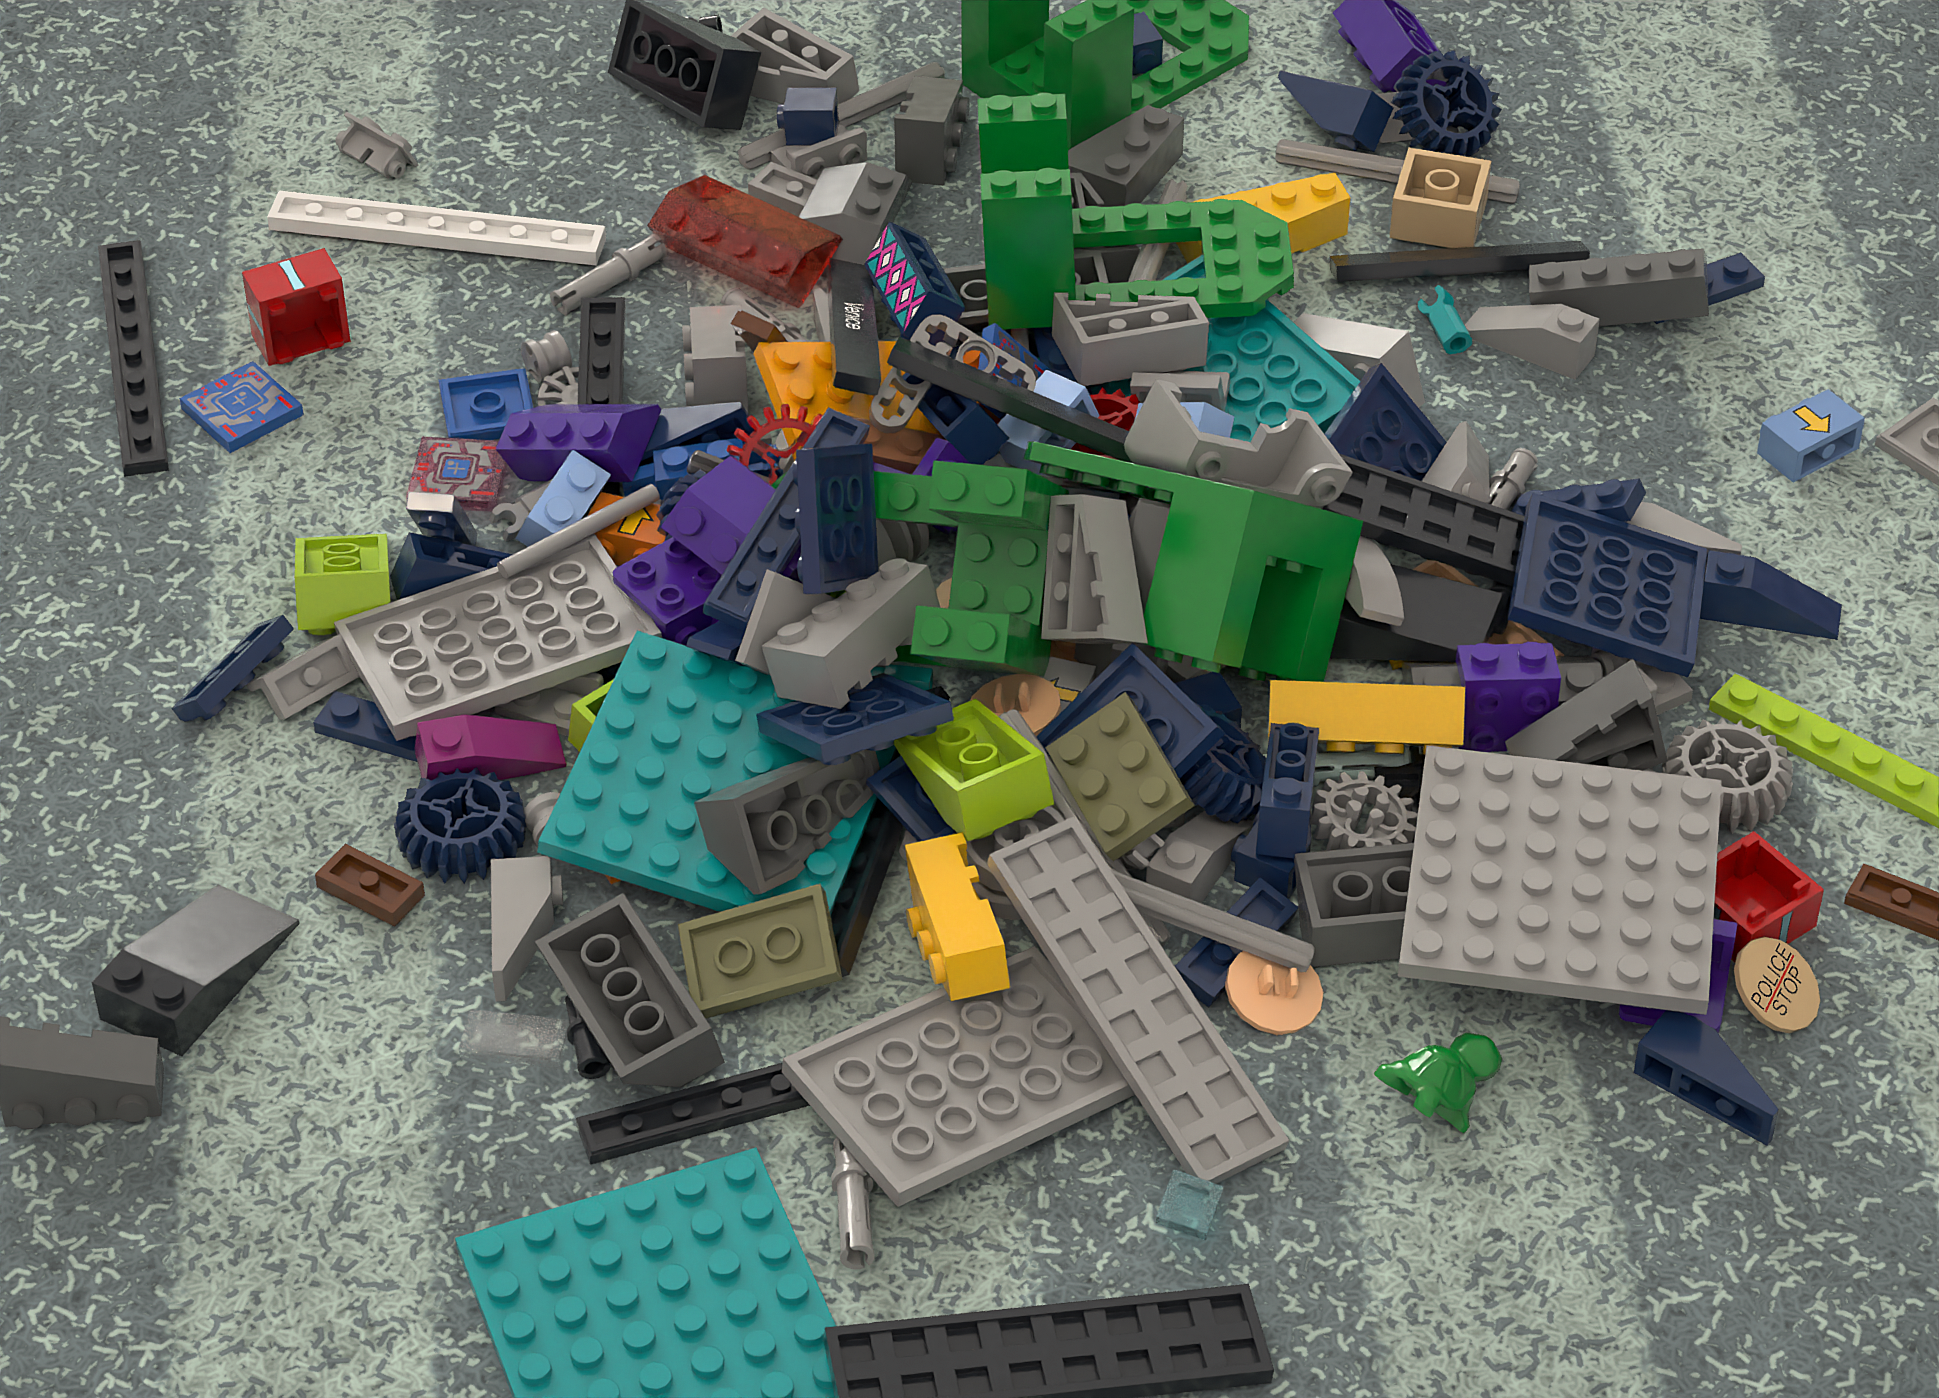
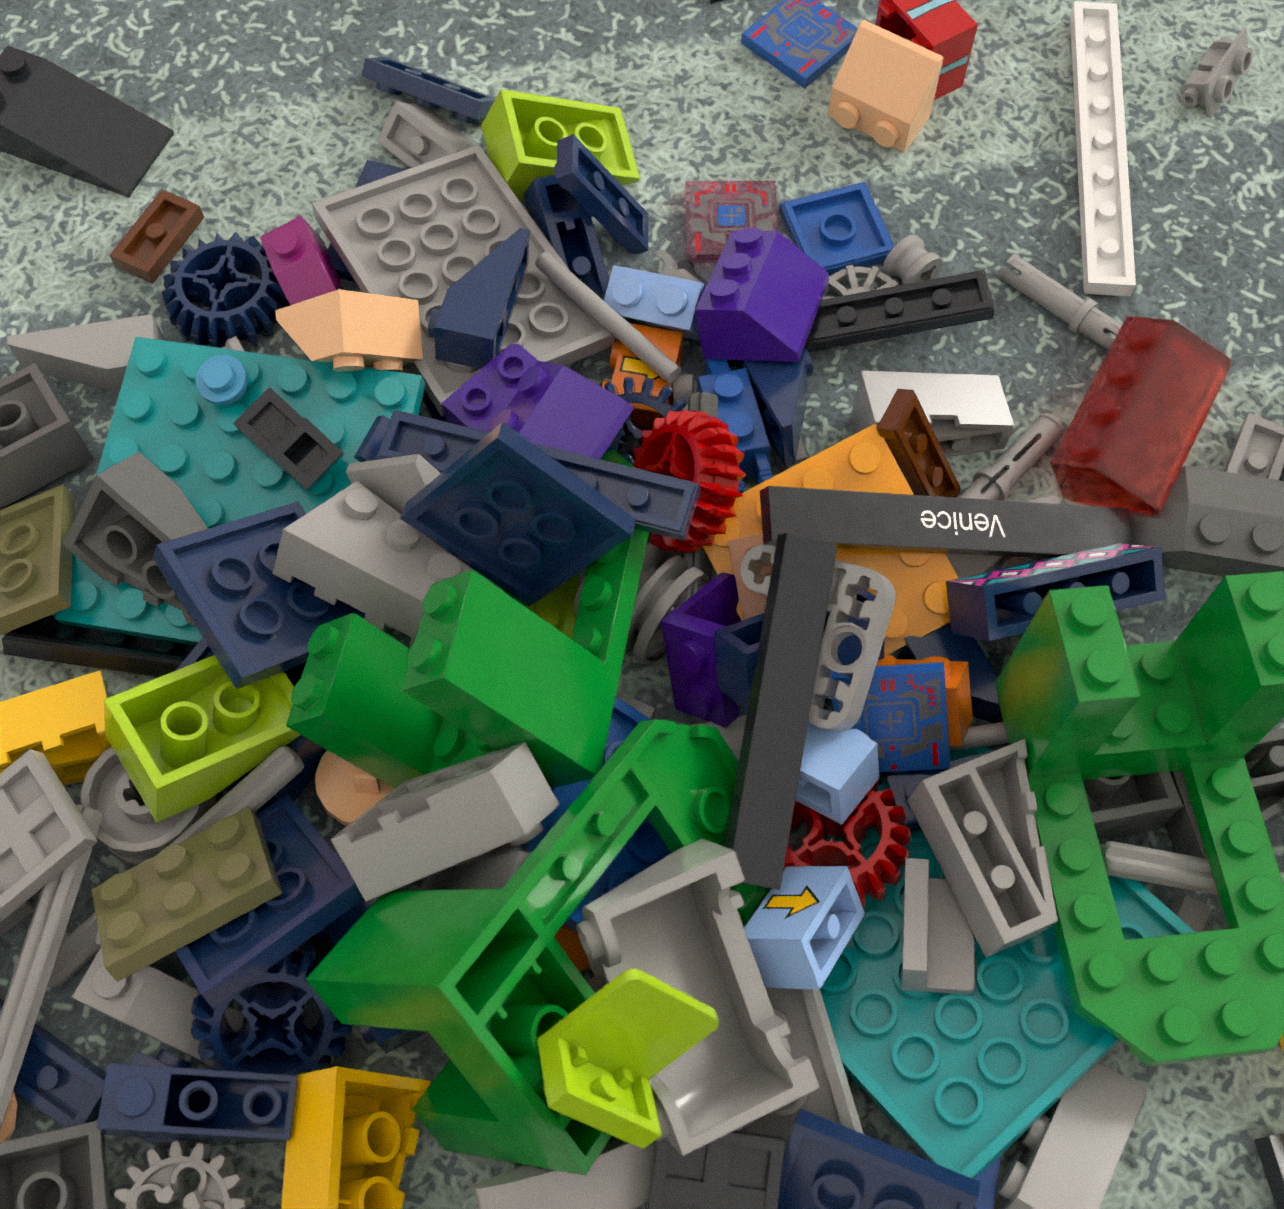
camera: 85 degrees right, 20 degrees up
(347, 340) = (885, 87): none -> light nougat slope
(562, 591) = (480, 305): none -> dark blue slope
(581, 666) = (356, 330): none -> light nougat slope
(618, 757) = (222, 380): none -> dark azure plate
(695, 716) = (288, 439): none -> black slope
(1312, 482) = (611, 1046): none -> lime bracket

